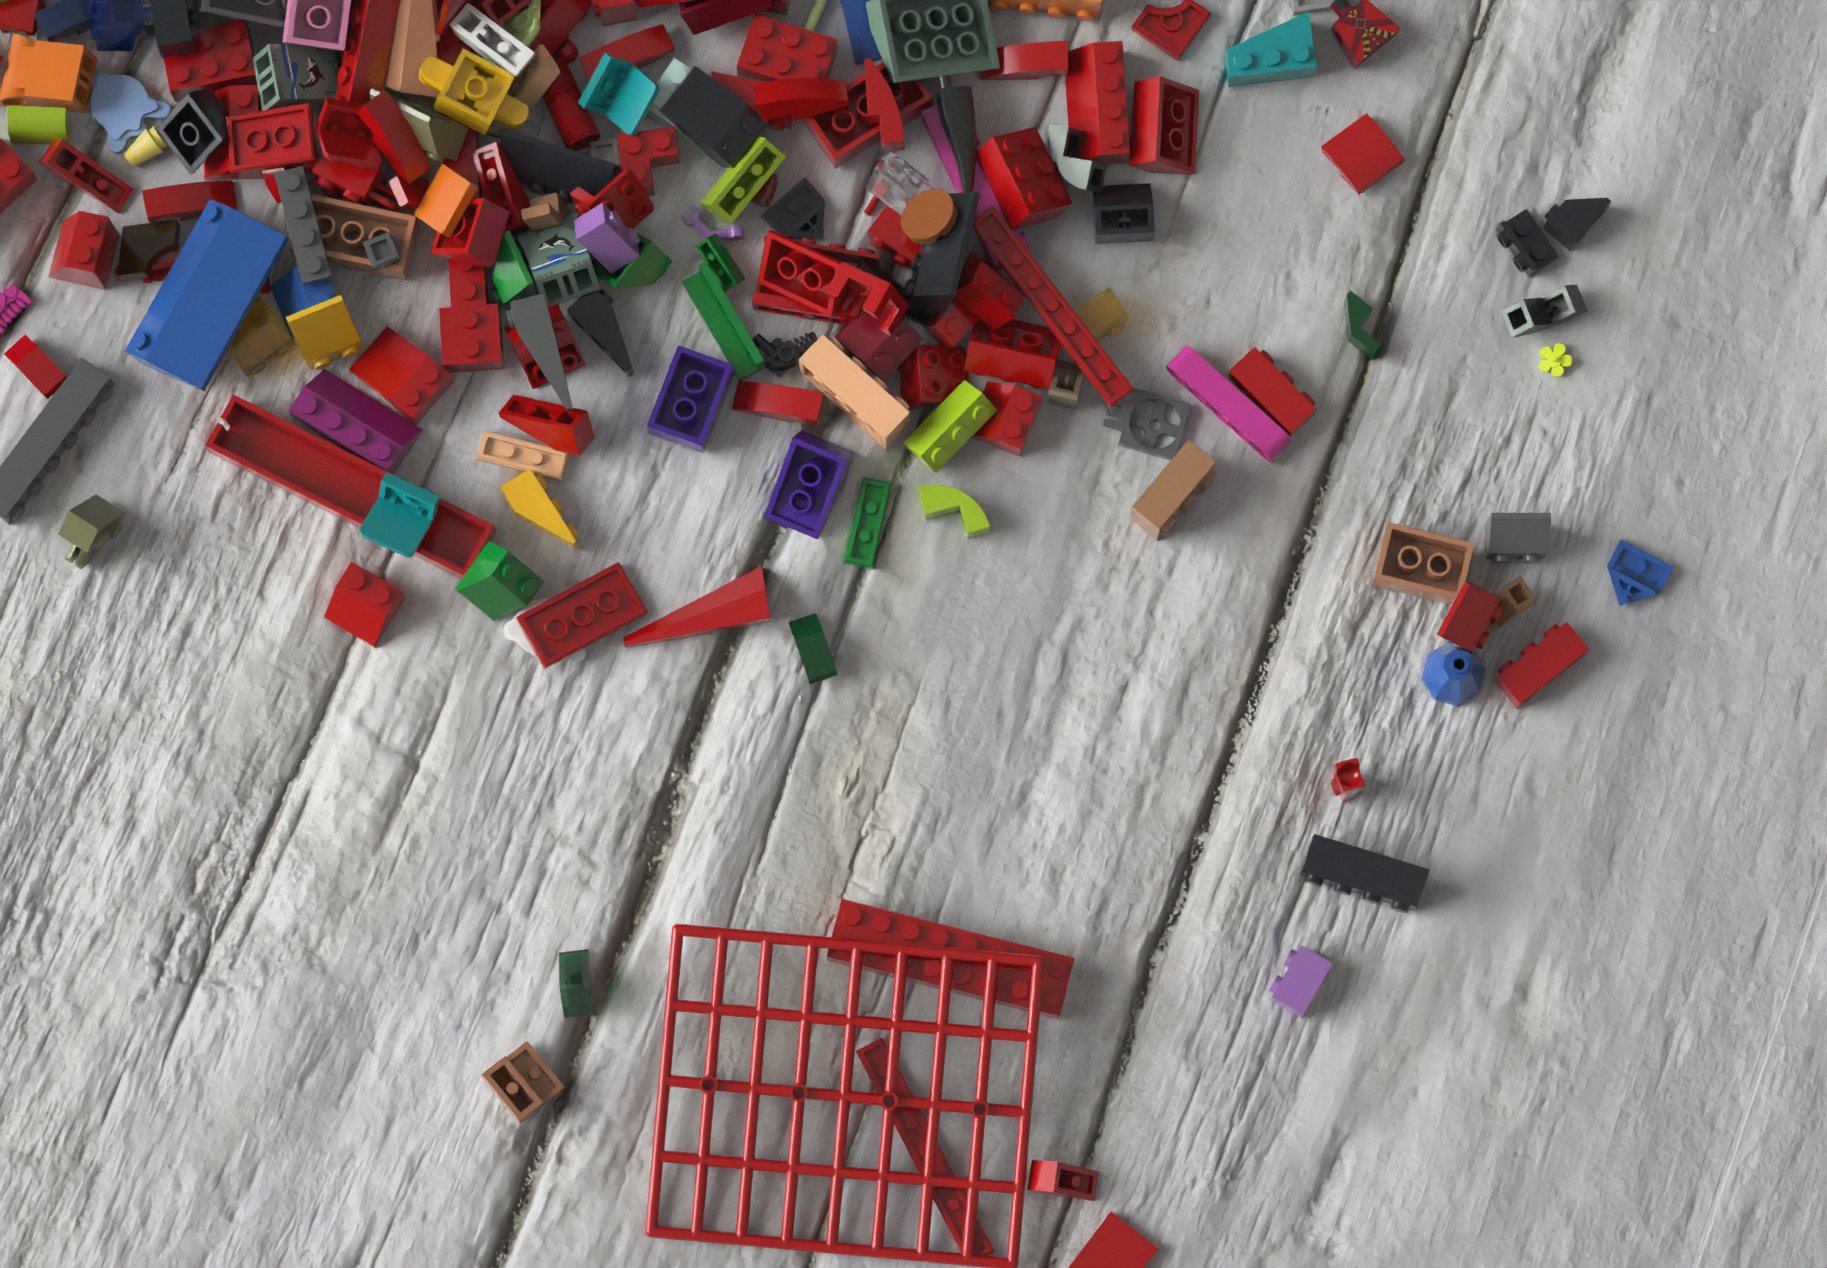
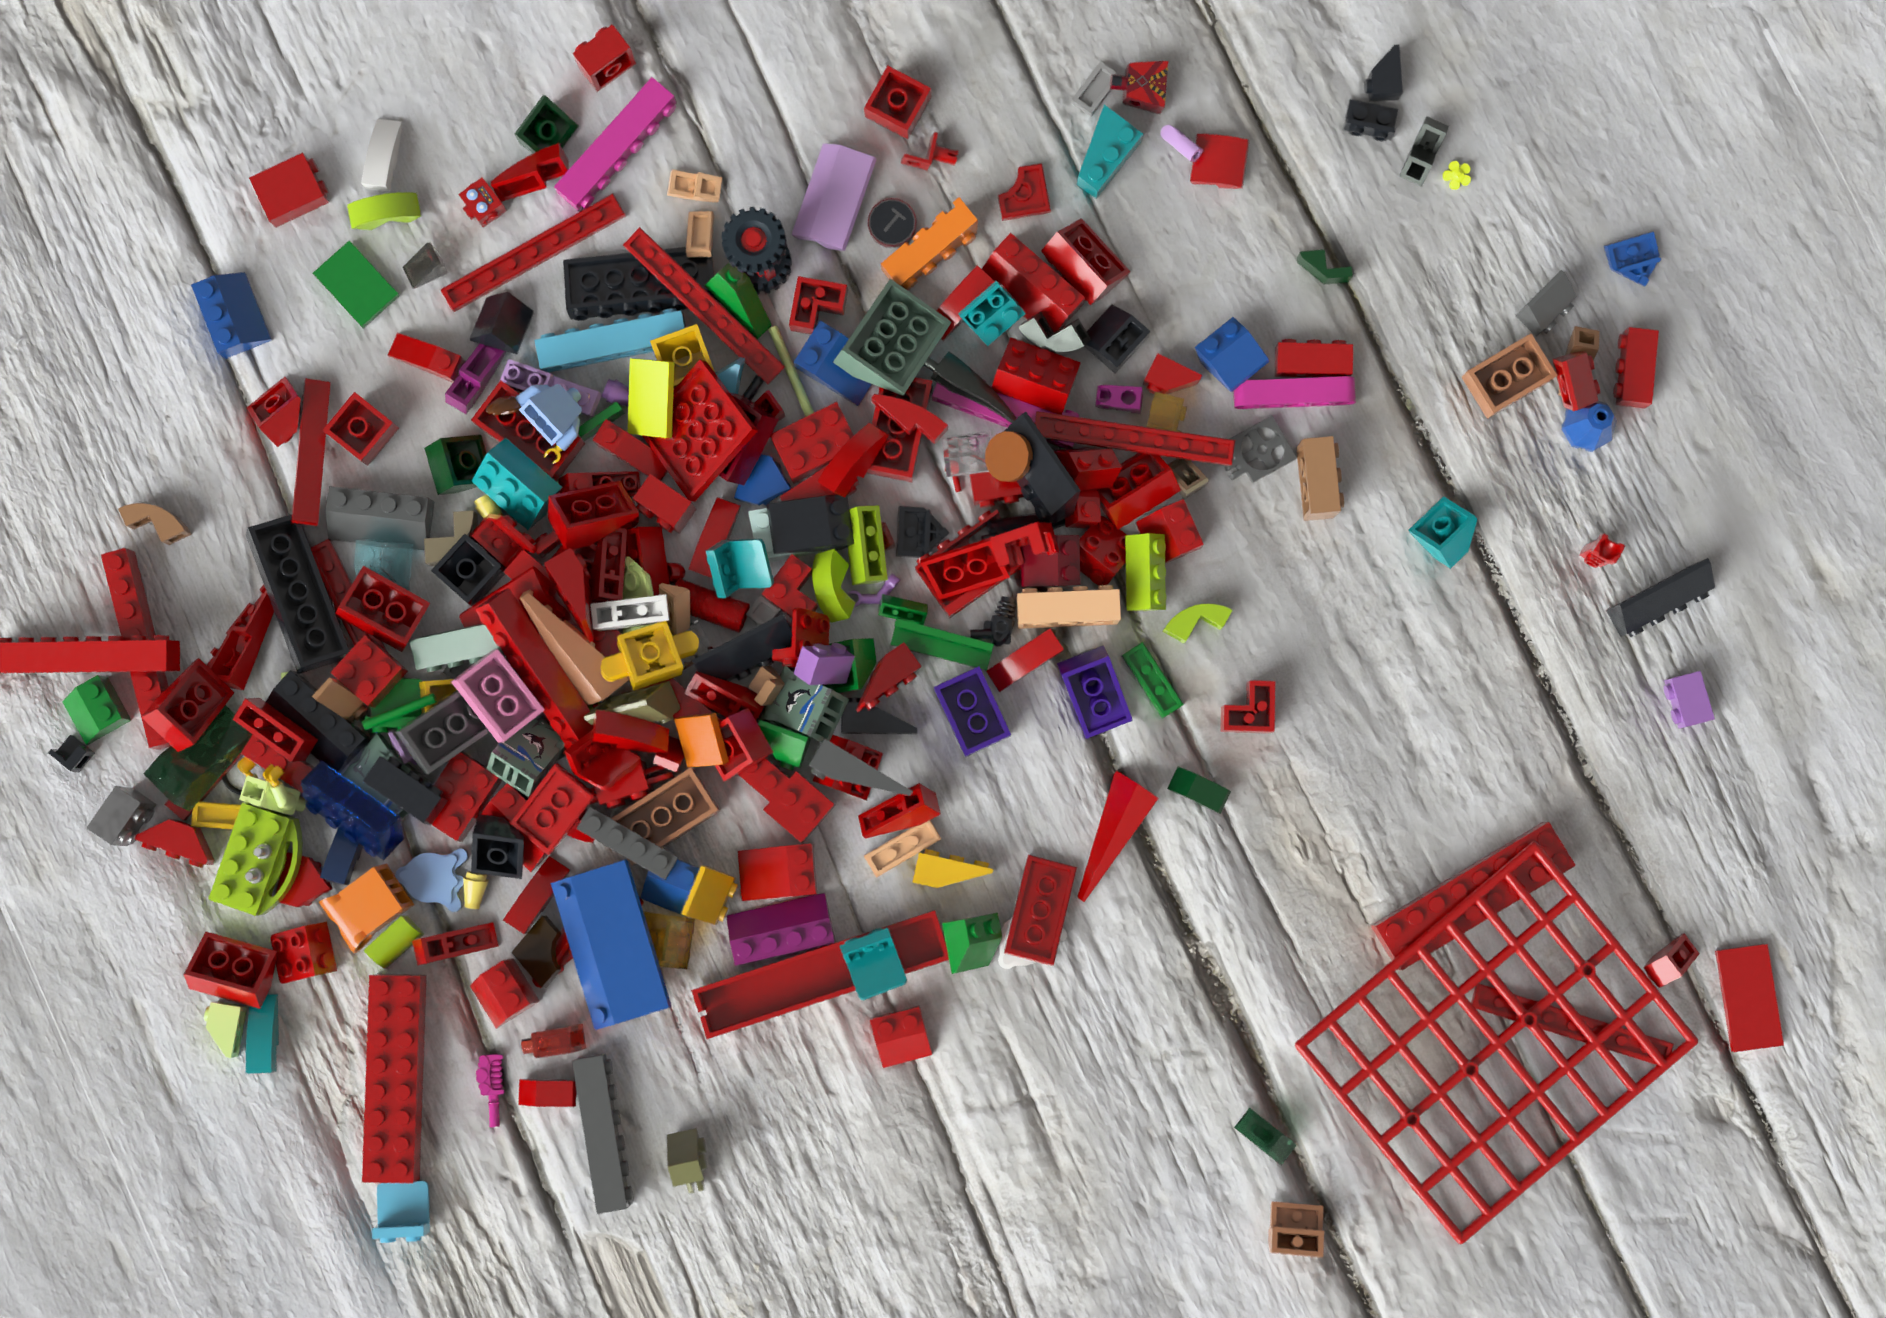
camera: 45 degrees left, 5 degrees up
(85, 330) = (555, 1041): none -> clear red torso
(382, 251) = (692, 810): dark grey tile -> none
(659, 302) = (890, 671): none -> red slope
(684, 174) = (827, 577): none -> lime brick
(713, 49) = (764, 483): none -> blue slope
(921, 632) = (1256, 715): none -> red brick
(1039, 89) = (992, 313): none -> teal slope
(1078, 267) = (1119, 398): none -> magenta leg
(1136, 288) = (1169, 376): none -> red slope
(1205, 318) = (1231, 354): none -> blue slope
(1237, 640) = (1445, 531): none -> teal slope
(1344, 107) = (1181, 142): none -> lavender bar

